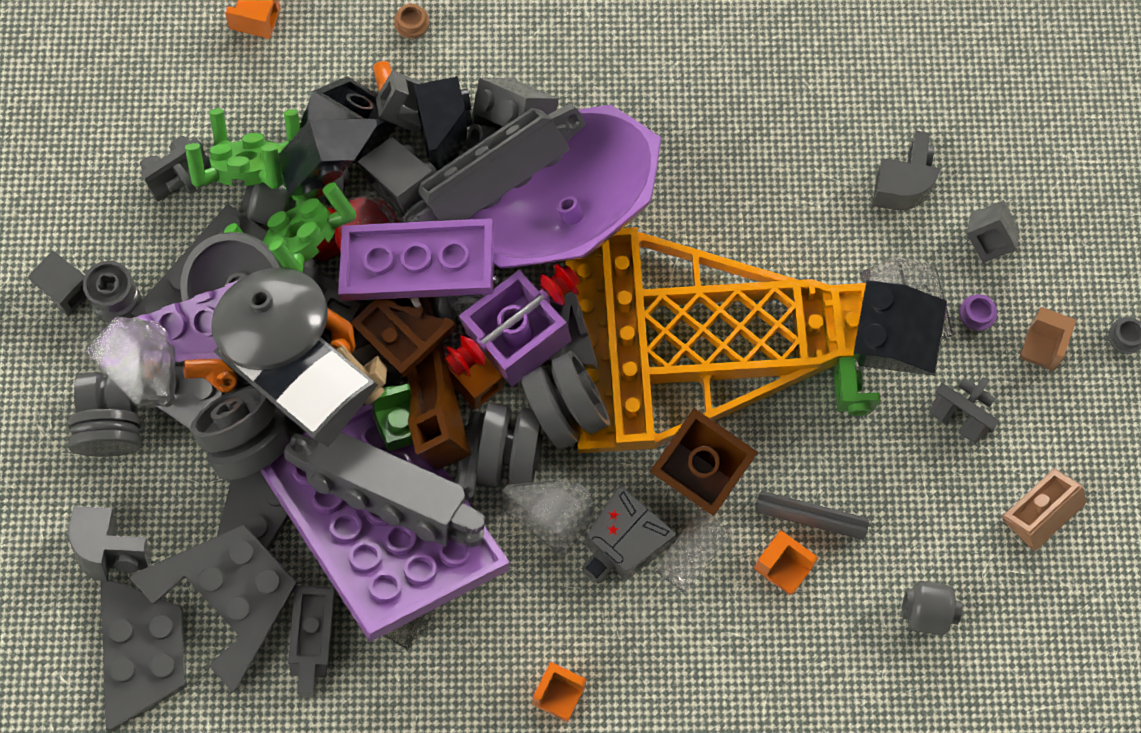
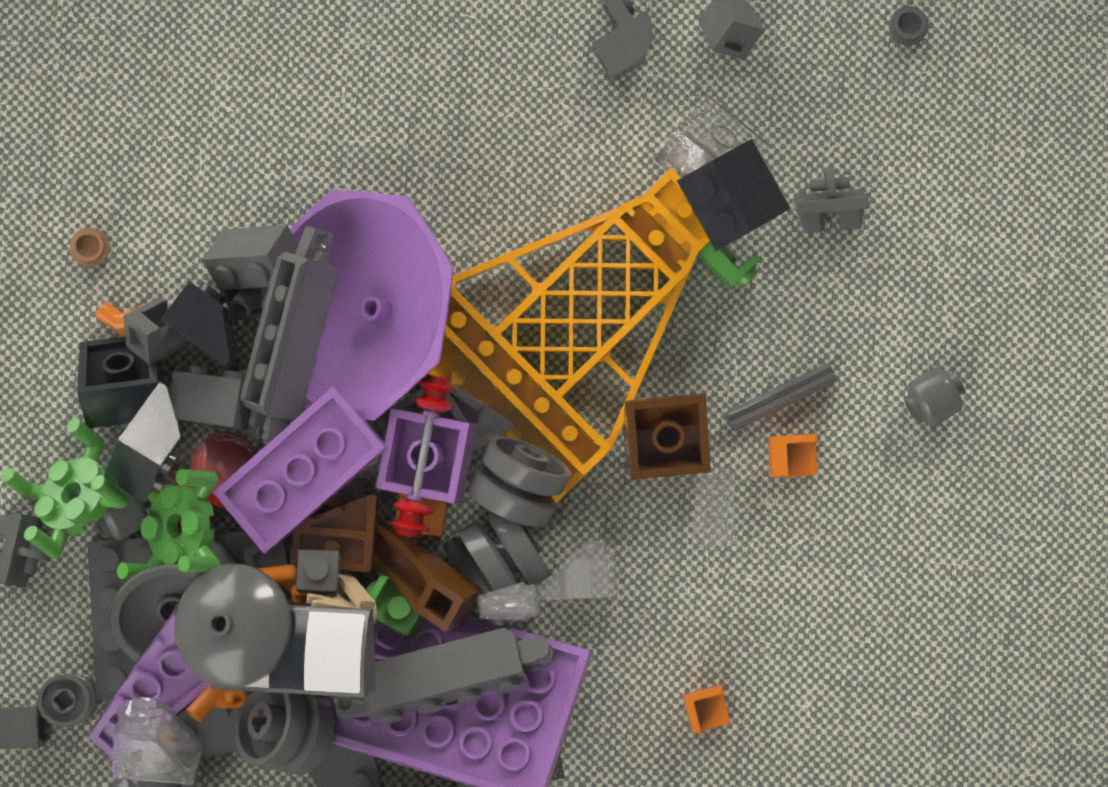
camera: 35 degrees left, 15 degrees up
(365, 339) = (318, 571): none -> dark grey plate
(481, 475) = (510, 603): none -> clear cone
(625, 538) = (653, 544): dark grey torso -> none
(978, 312) = (774, 108): medium lavender plate -> none
(1045, 508) = (956, 232): medium nougat slope -> none
(1047, 339) = (848, 86): medium nougat panel -> none

